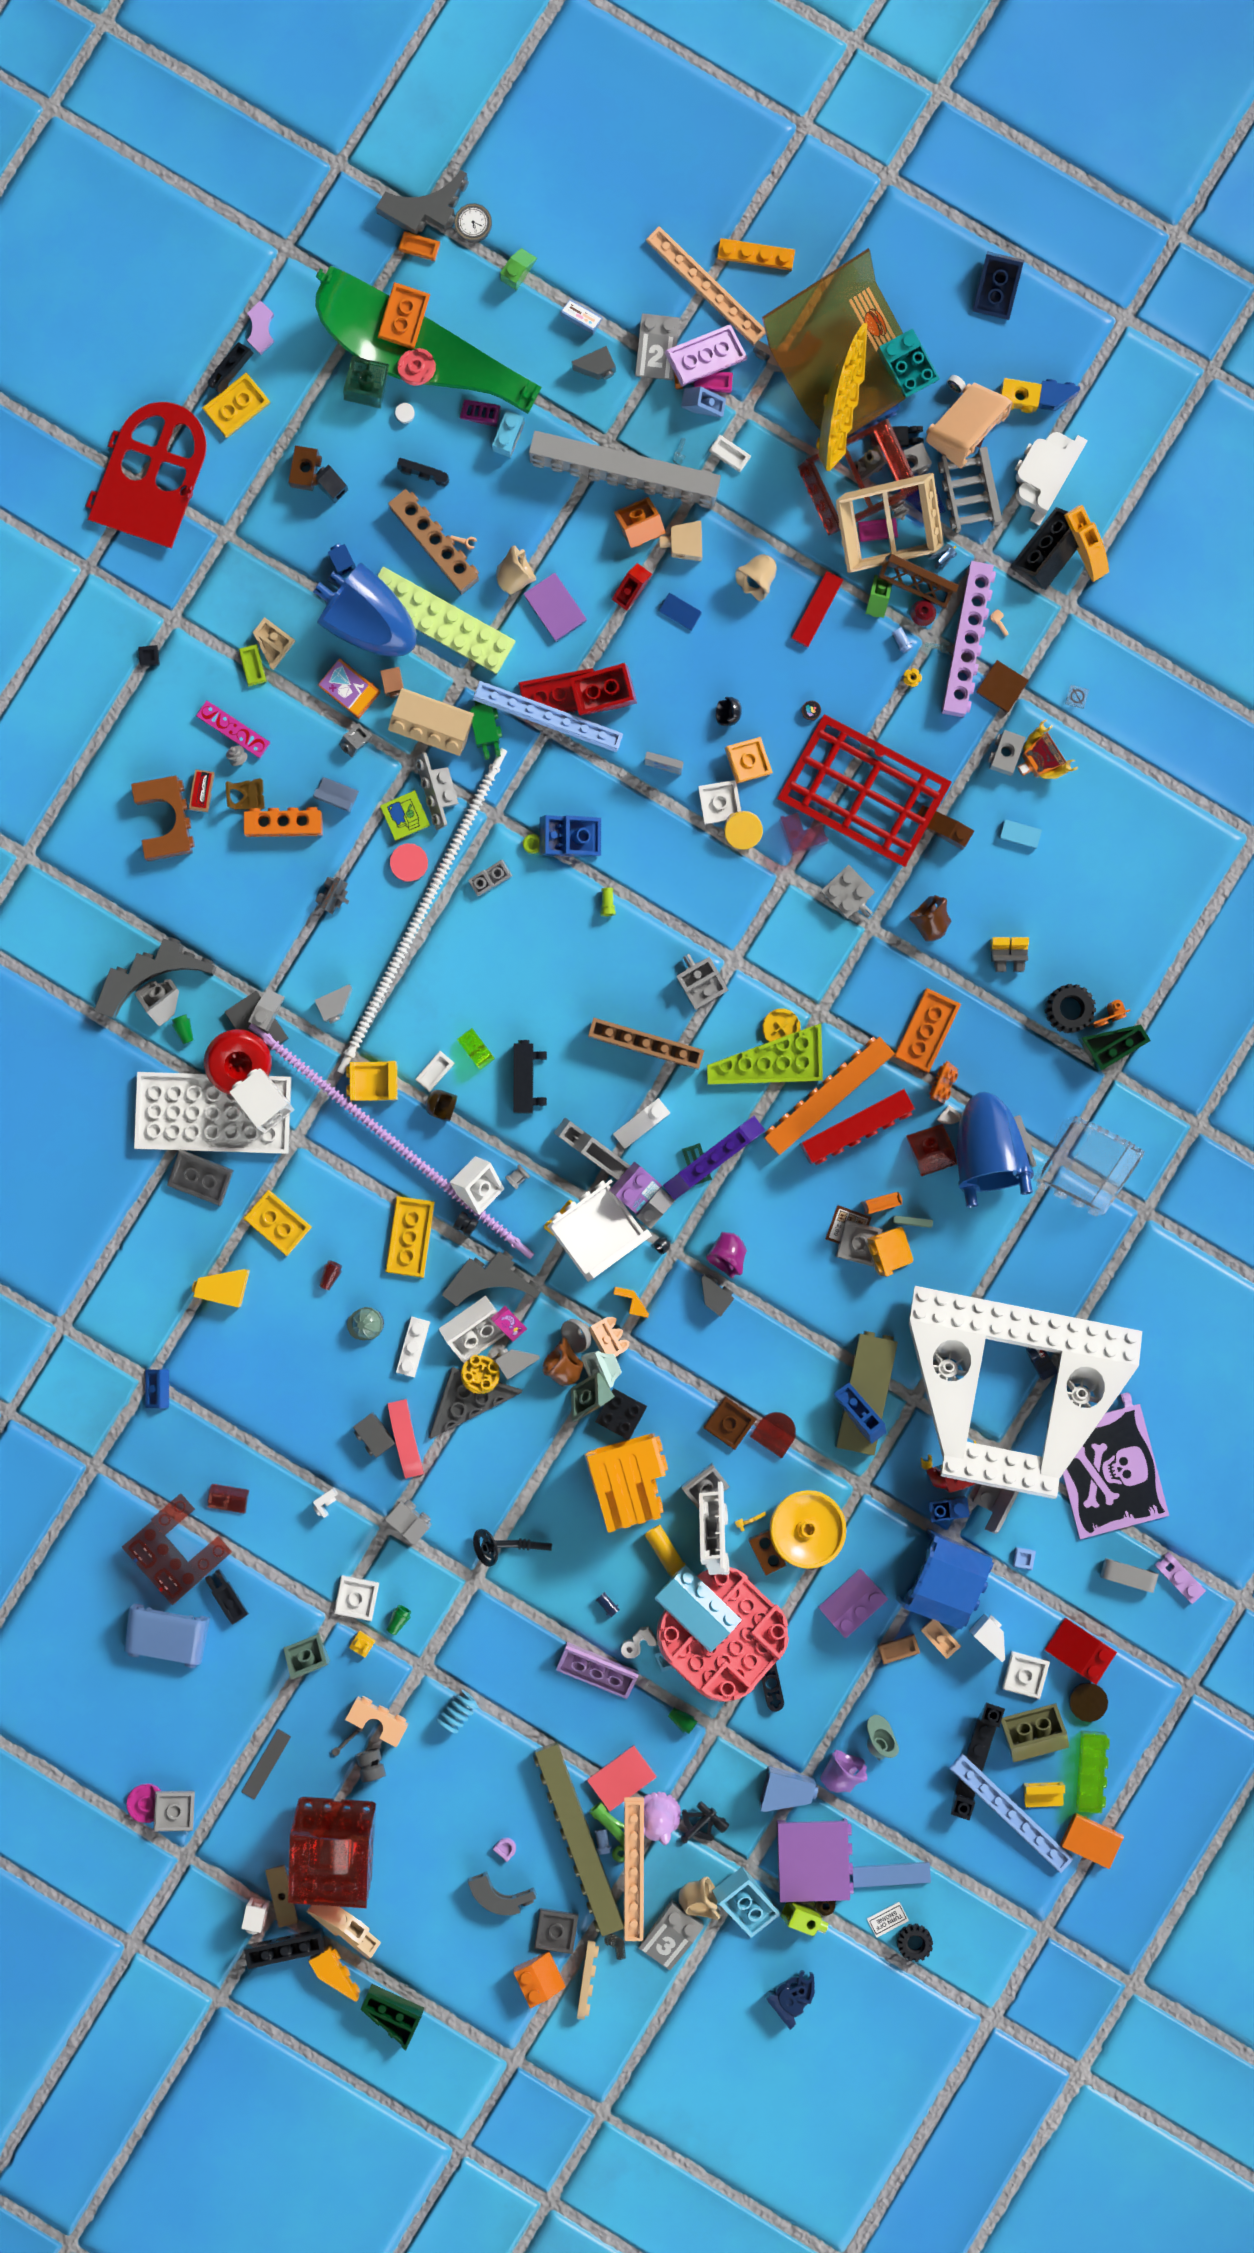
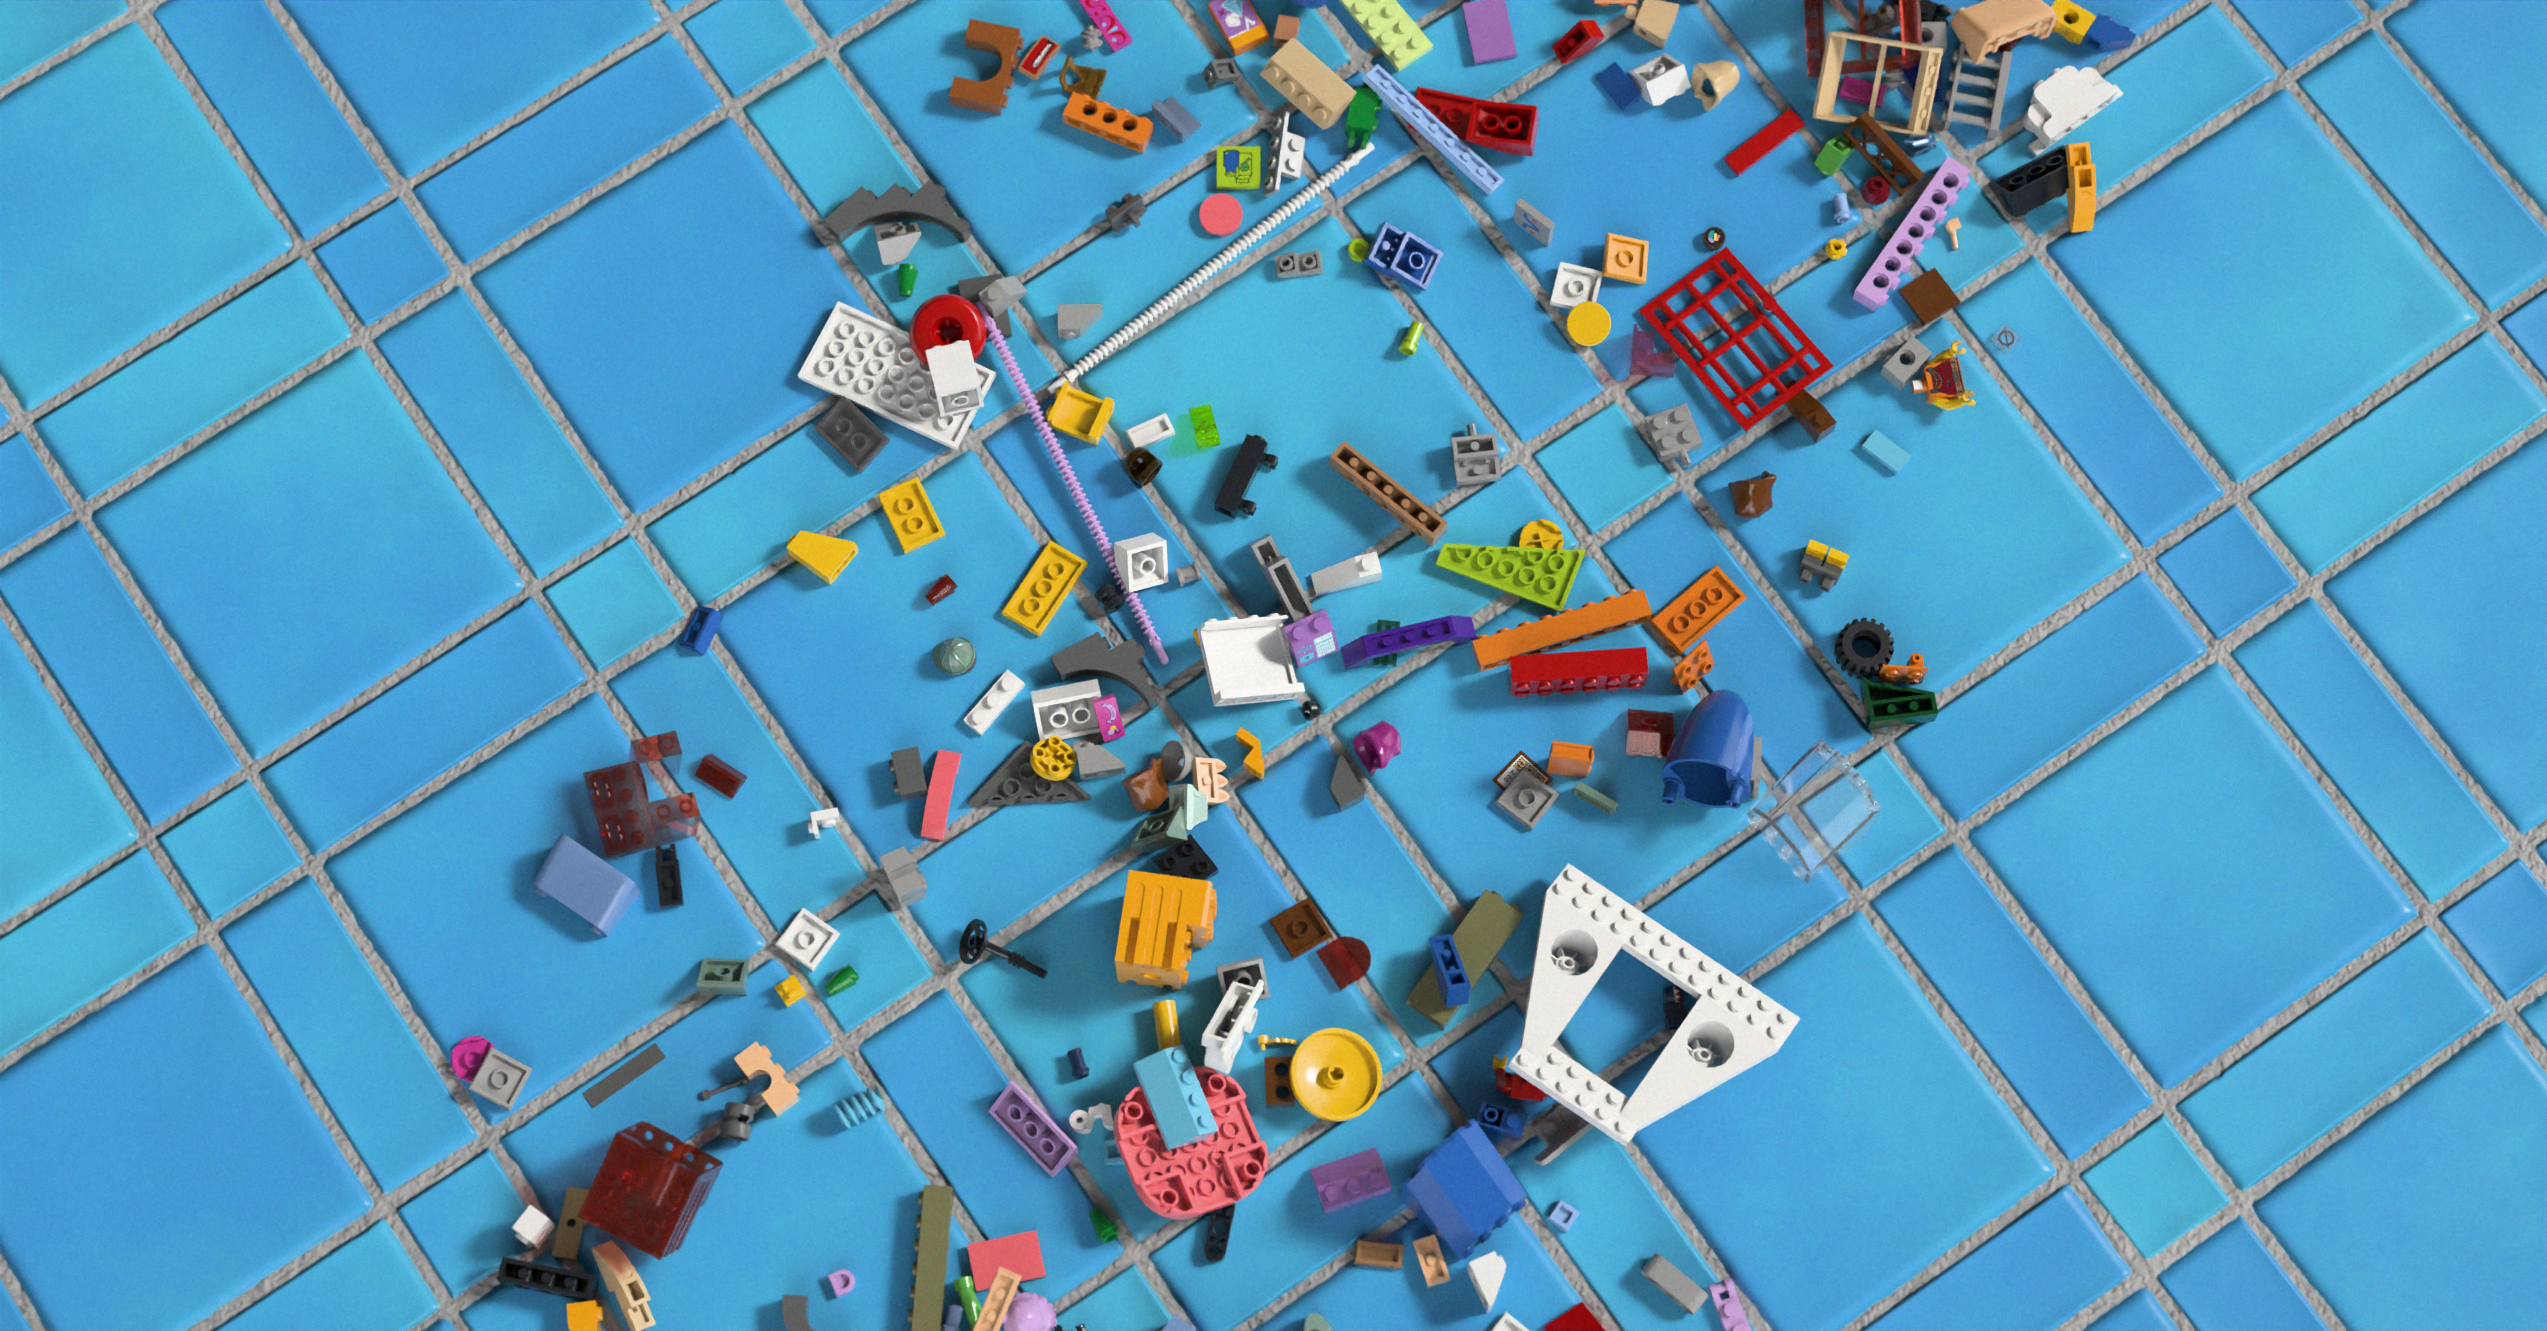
camera: 25 degrees right, 15 degrees down
(655, 1208) = (1321, 669): light grey slope -> none
(711, 591) = (1660, 79): none -> white slope
(728, 711) = (1626, 202): black hair -> none
(890, 1251) = (1557, 817): light orange bracket -> none
(949, 1116) = (1682, 707): white tile -> none
(1115, 1475) = (1703, 1165): flag -> none

